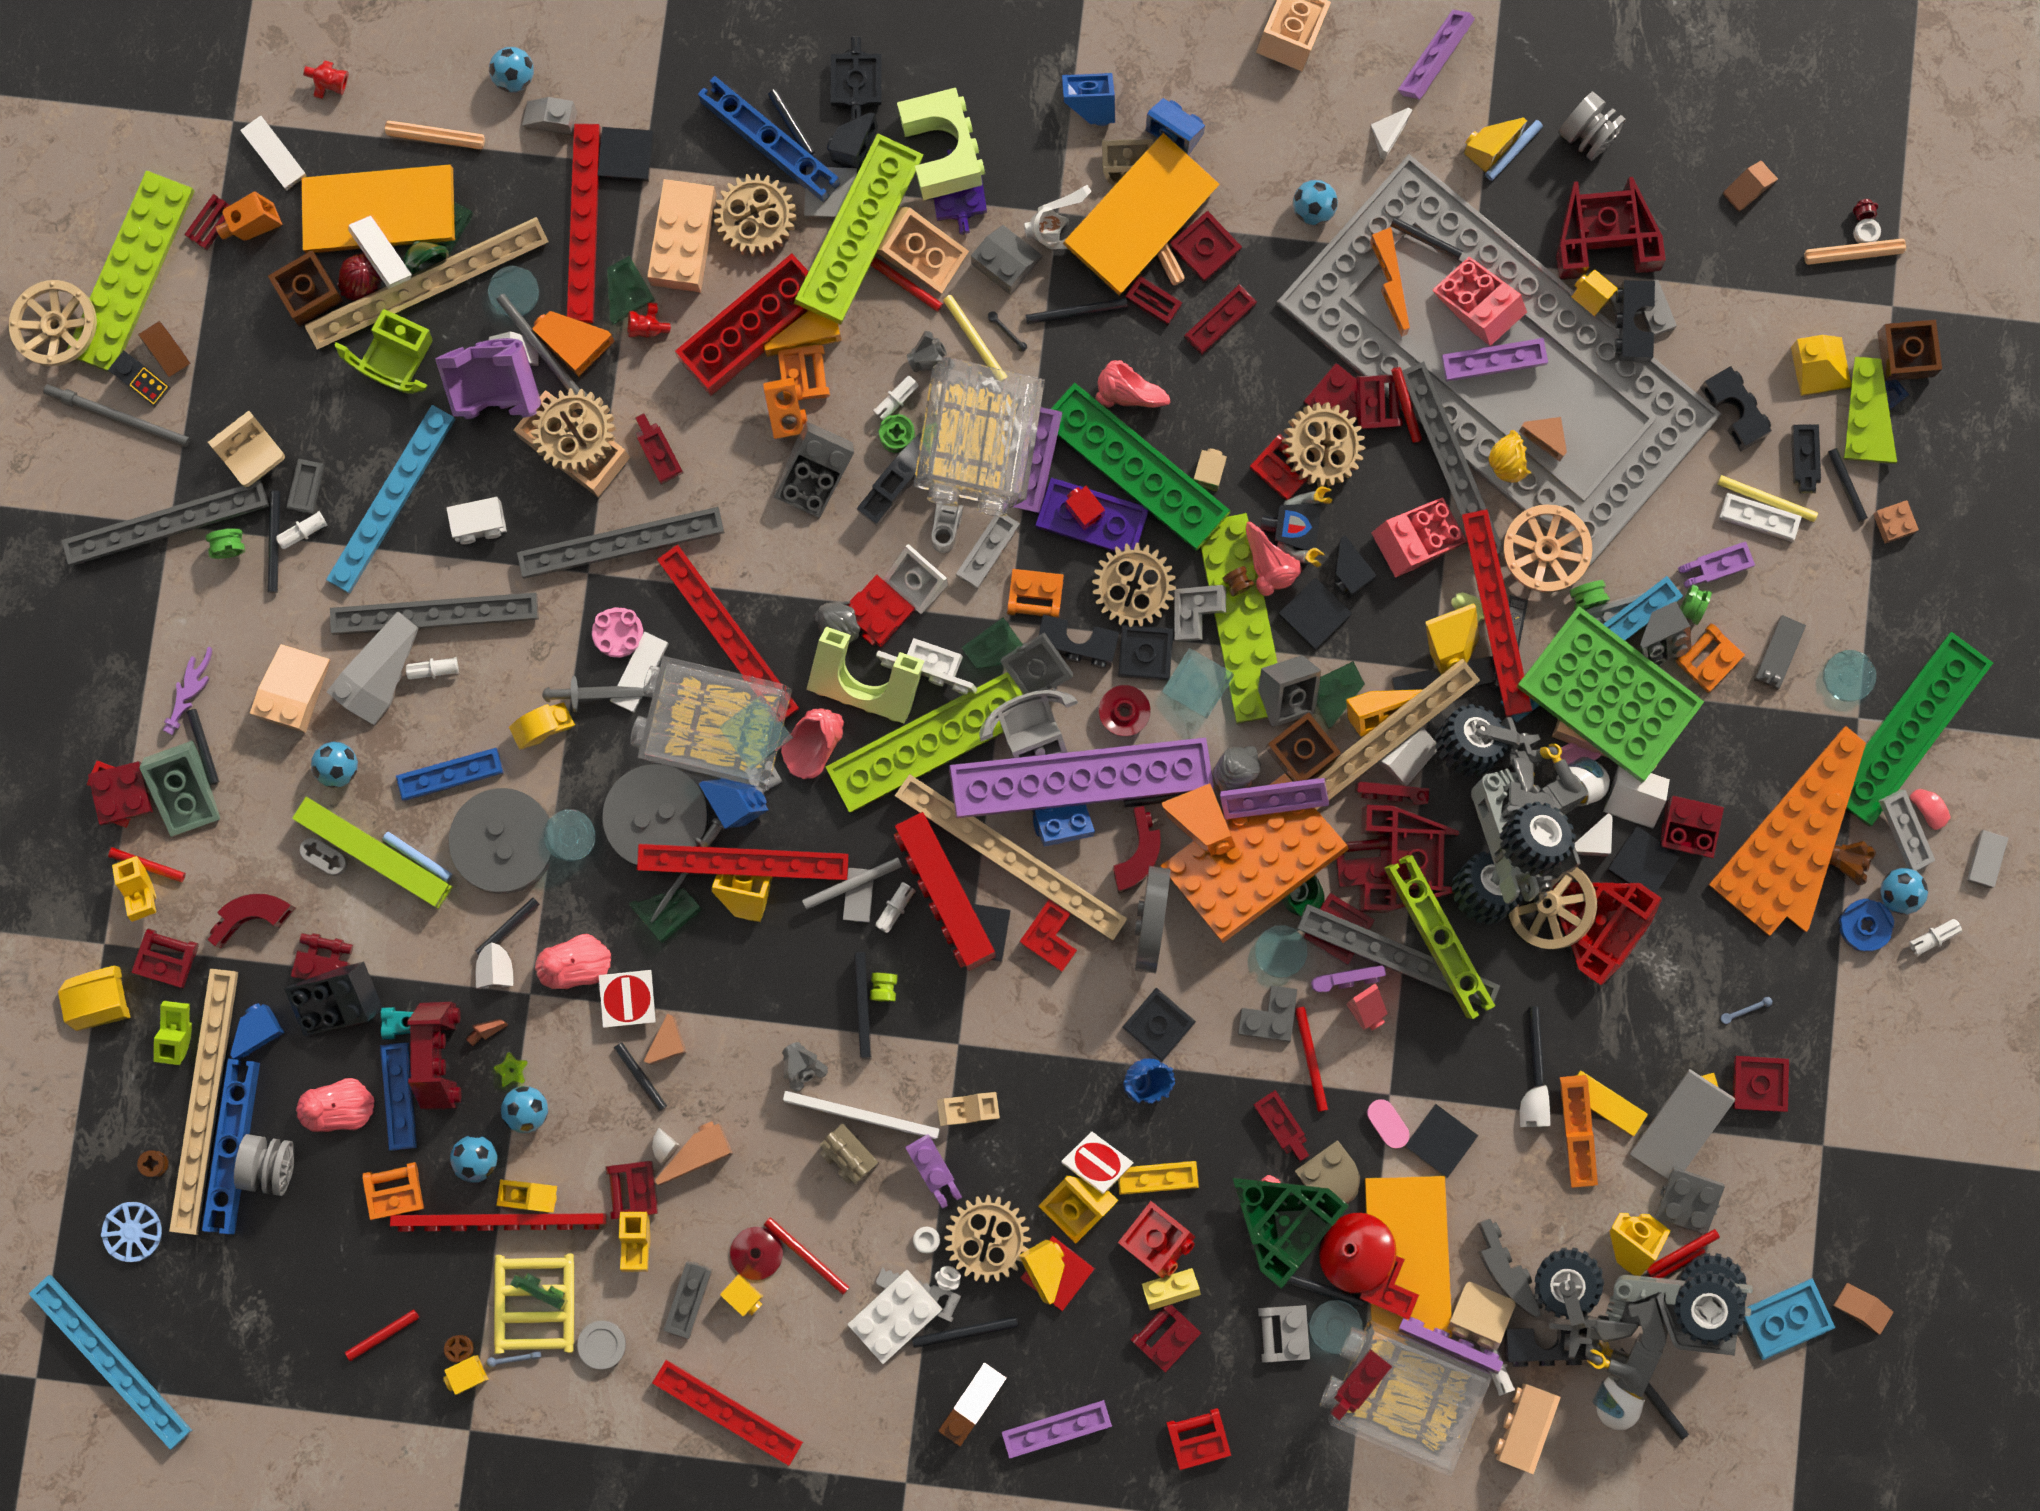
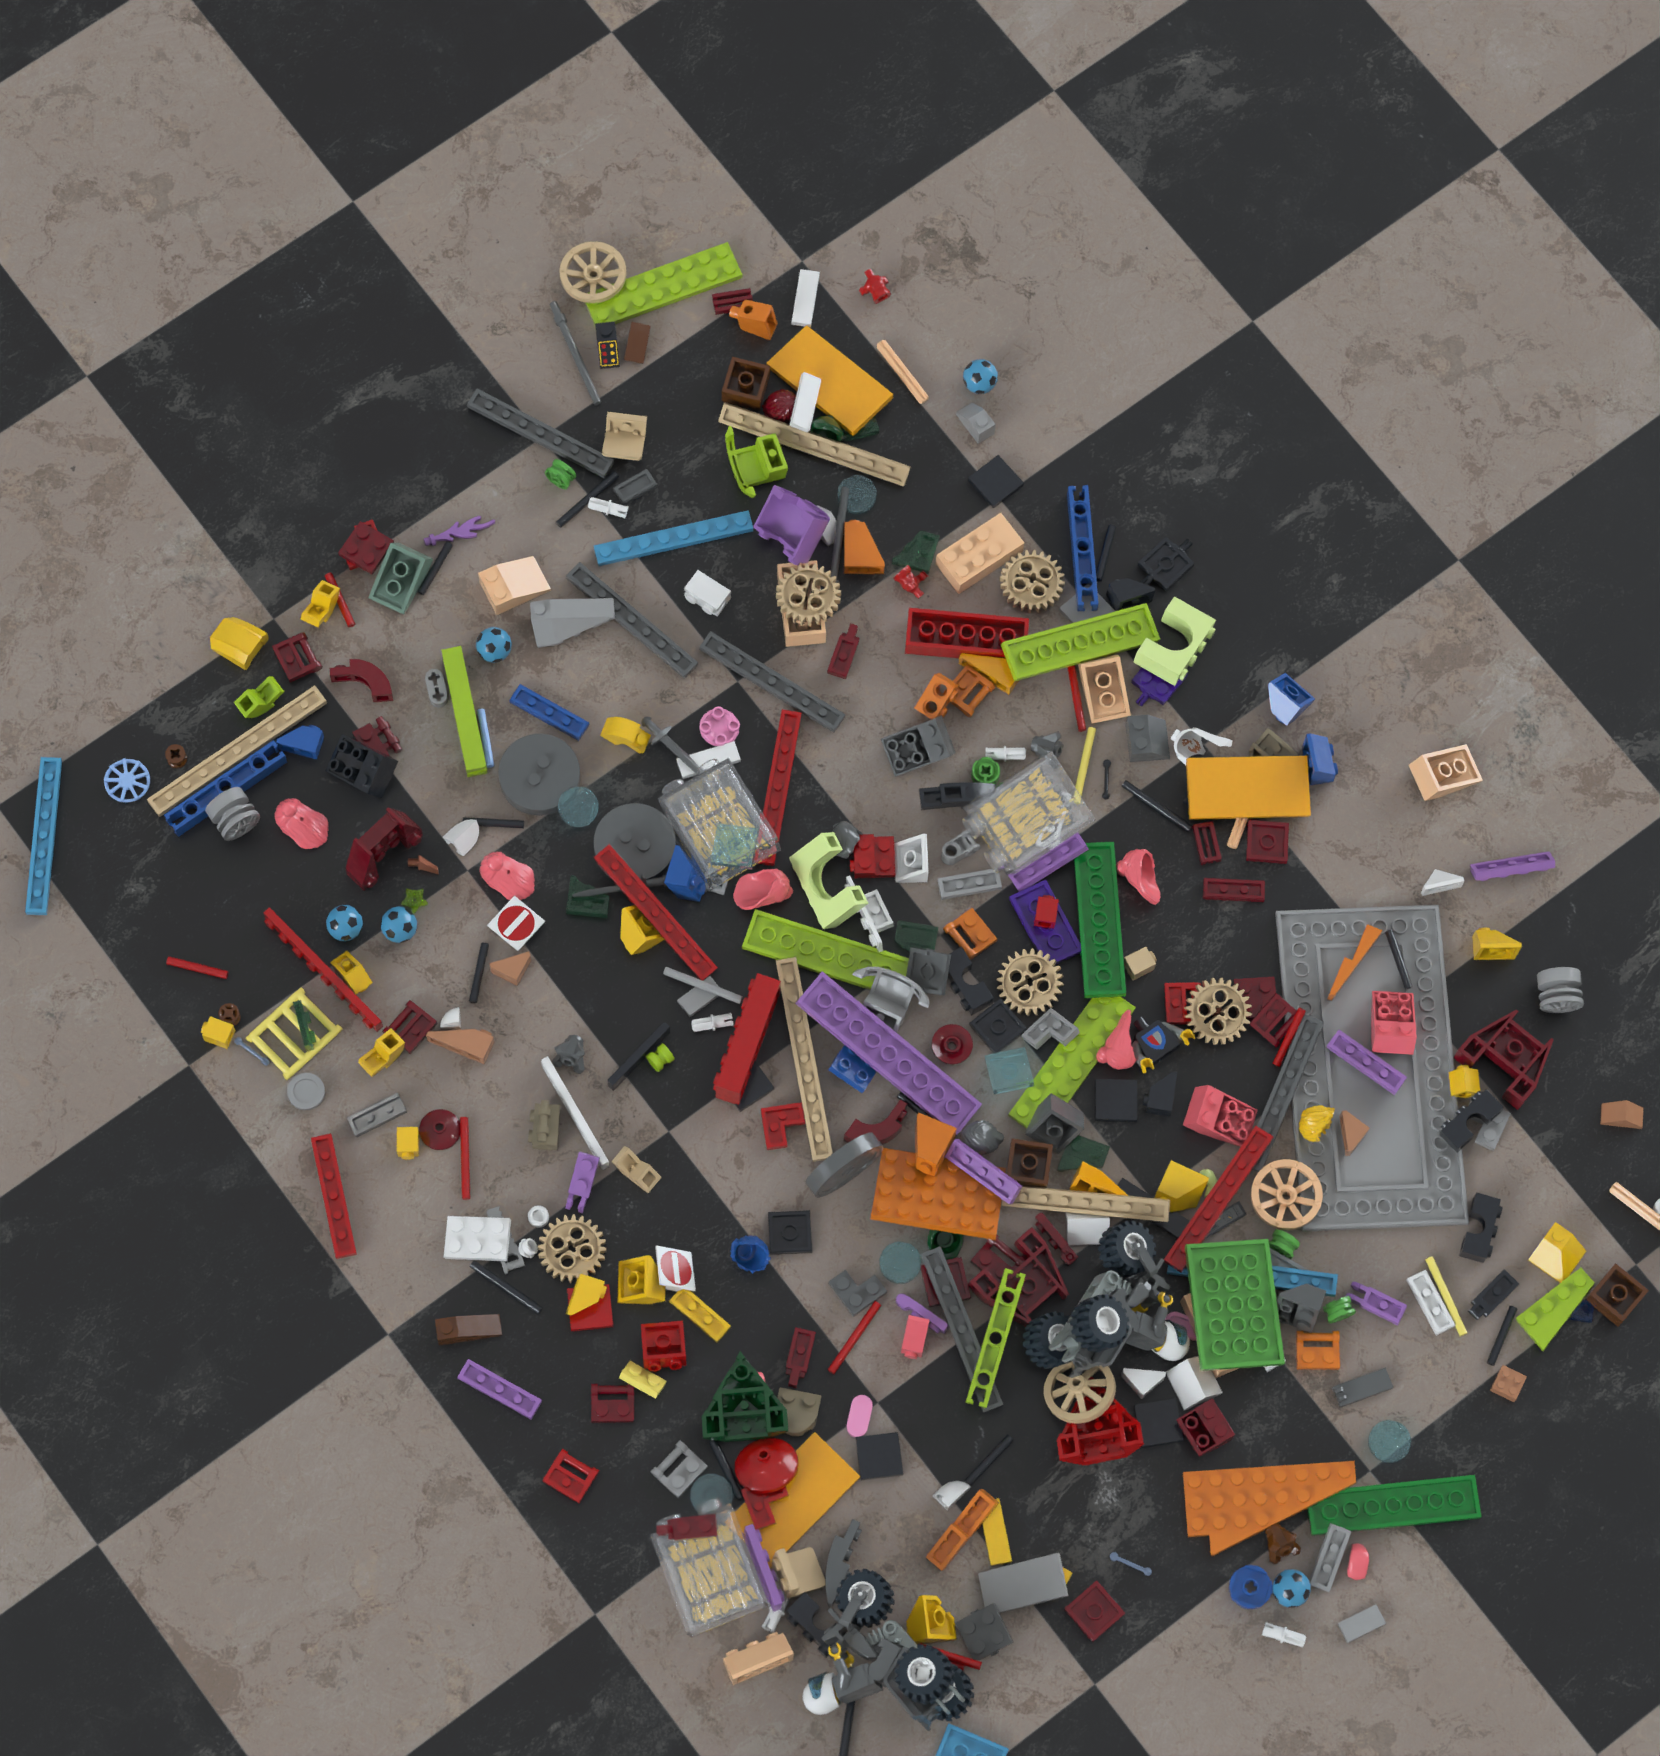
camera: 40 degrees right, 10 degrees down
(393, 1023) = (378, 809): teal plate -> none
(393, 1200) = (280, 903): orange plate -> none
(398, 1096) = (337, 855): blue tile -> none
(432, 668) = (599, 647): white axle -> none
(583, 222) = (933, 495): red plate -> none
(1238, 581) = (1089, 1036): reddish brown wheel -> none
(1315, 202) = (1354, 877): dark azure piece -> none
(1520, 143) = (1492, 962): light blue piece -> none

